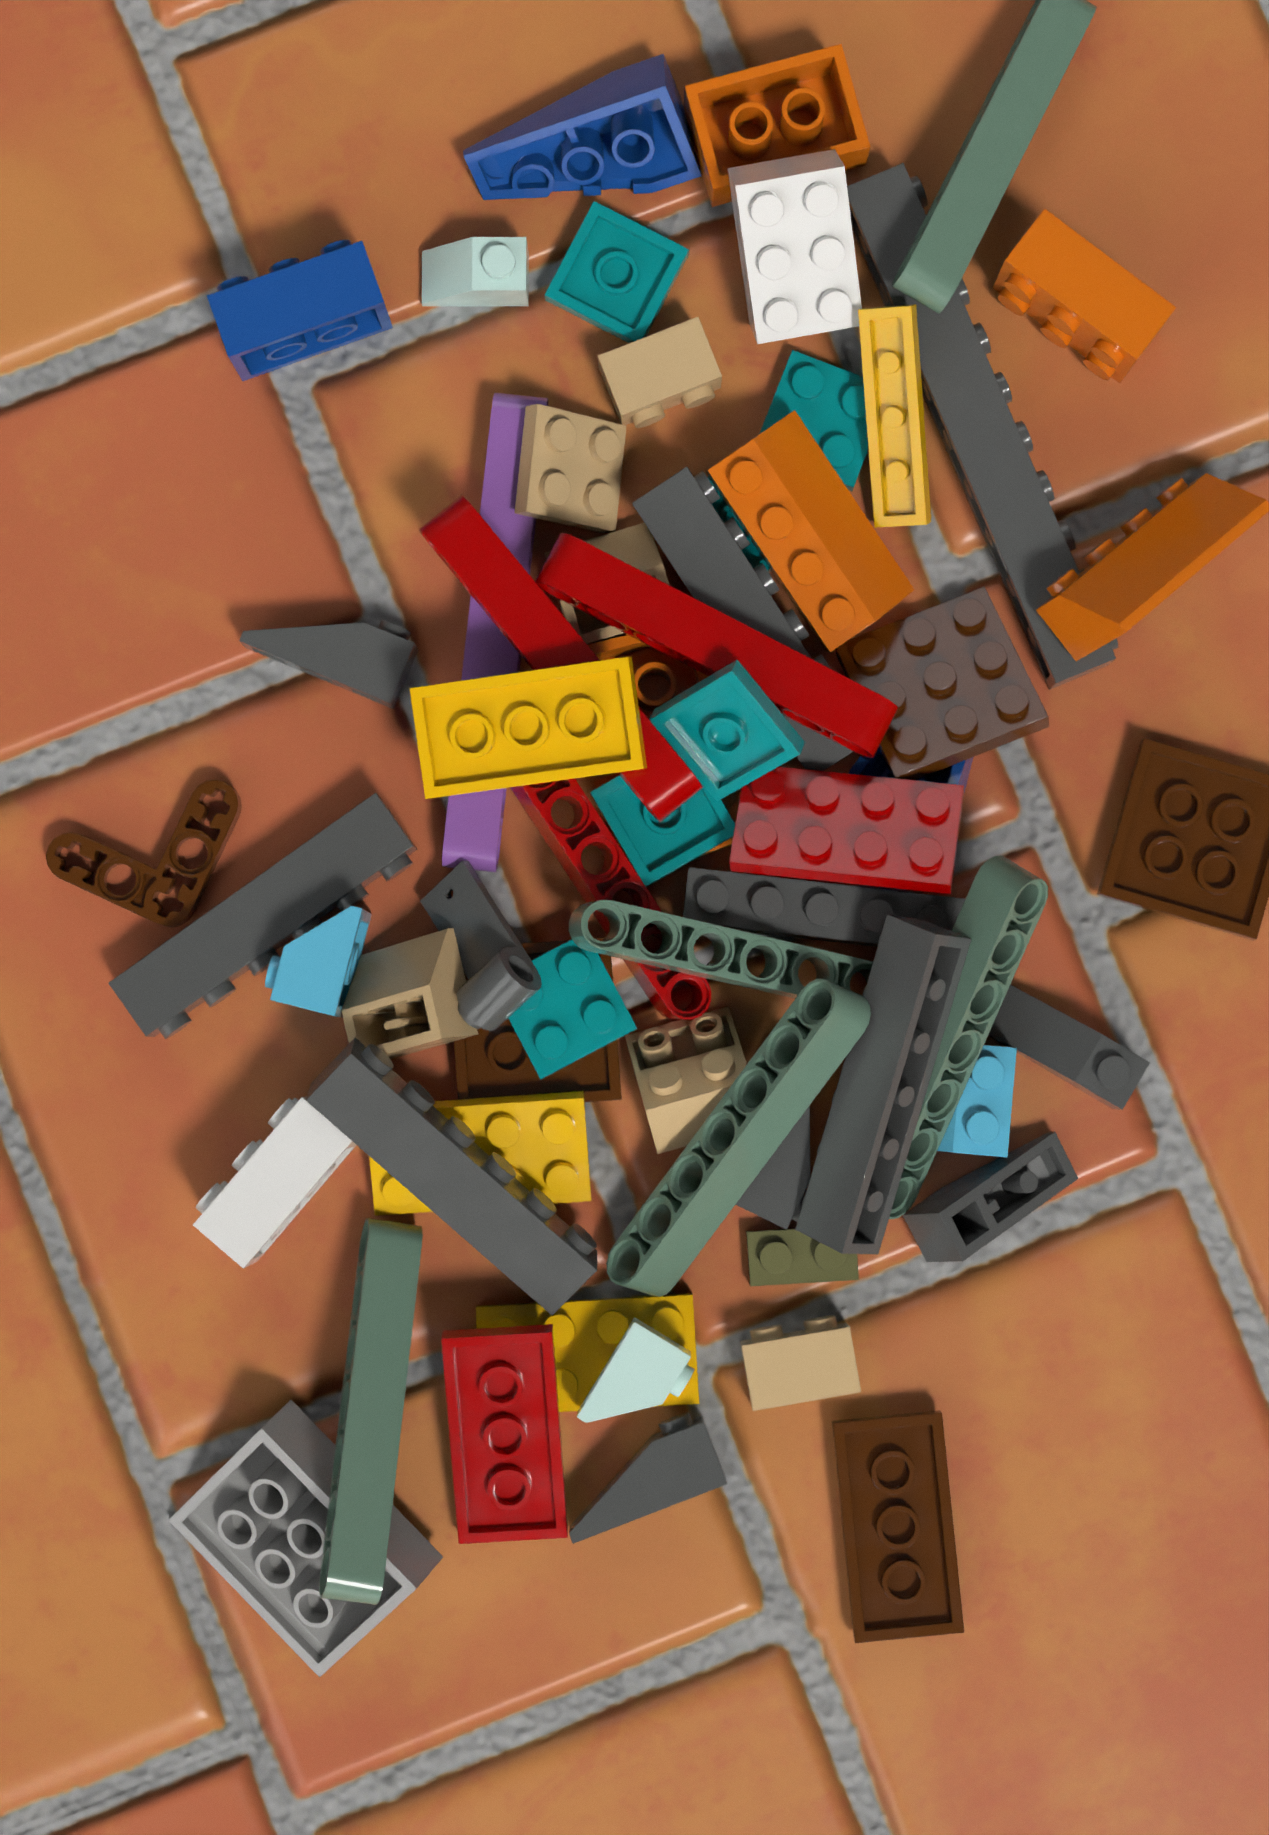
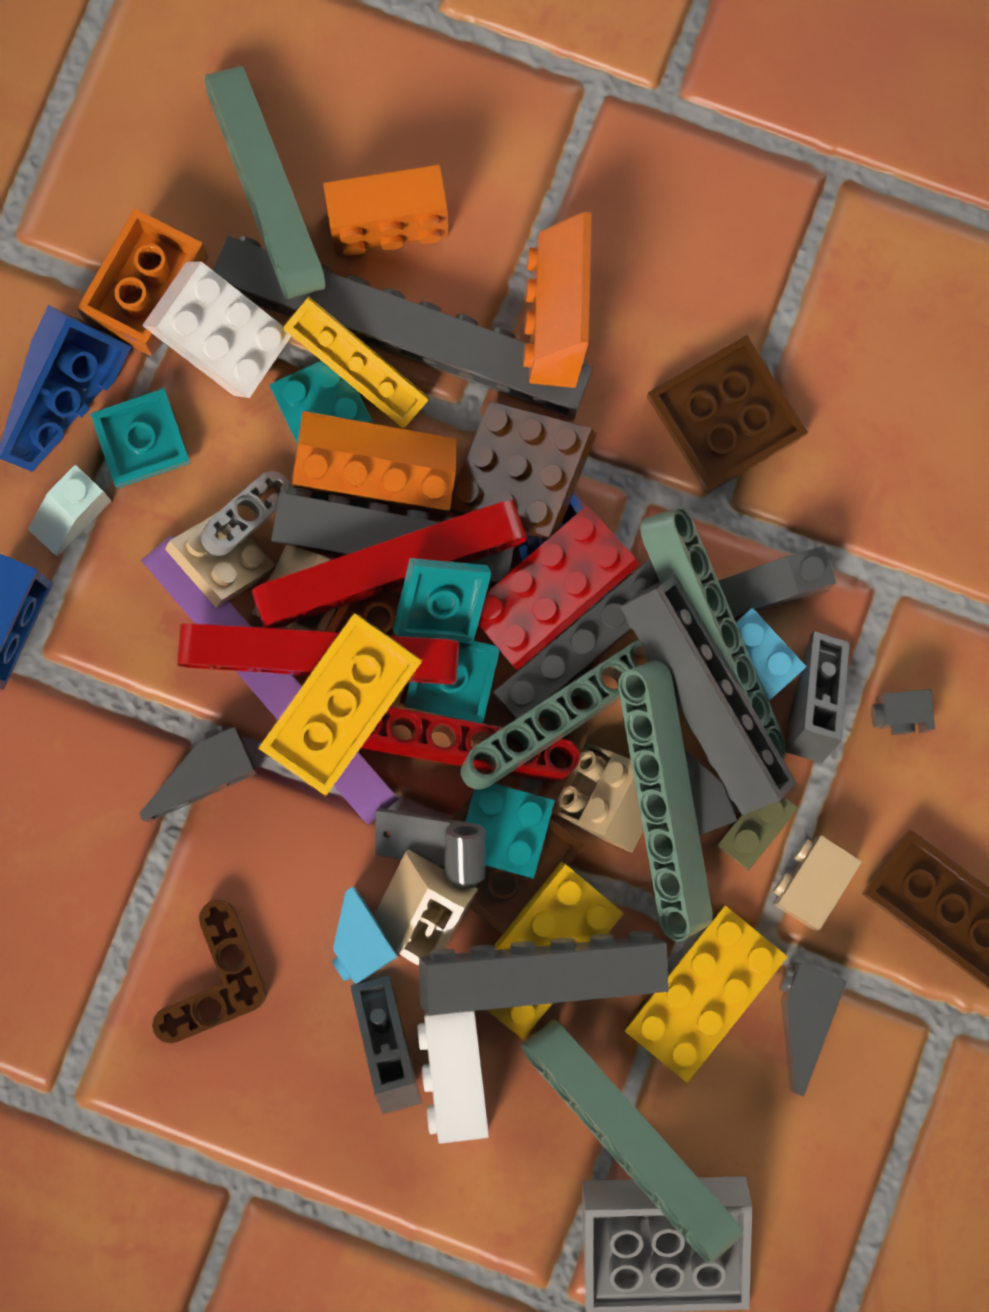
camera: 55 degrees left, 5 degrees down
(244, 1085) = (385, 1045): none -> dark grey slope
(263, 917) = (303, 949): dark grey brick -> none
(505, 1433) = (709, 1078): red plate -> none
(619, 438) = (241, 527): none -> light grey beam
(638, 1374) = (743, 975): light aqua slope -> none
(660, 373) = (215, 463): tan brick -> none
(1056, 1298) = (904, 711): none -> dark grey brick

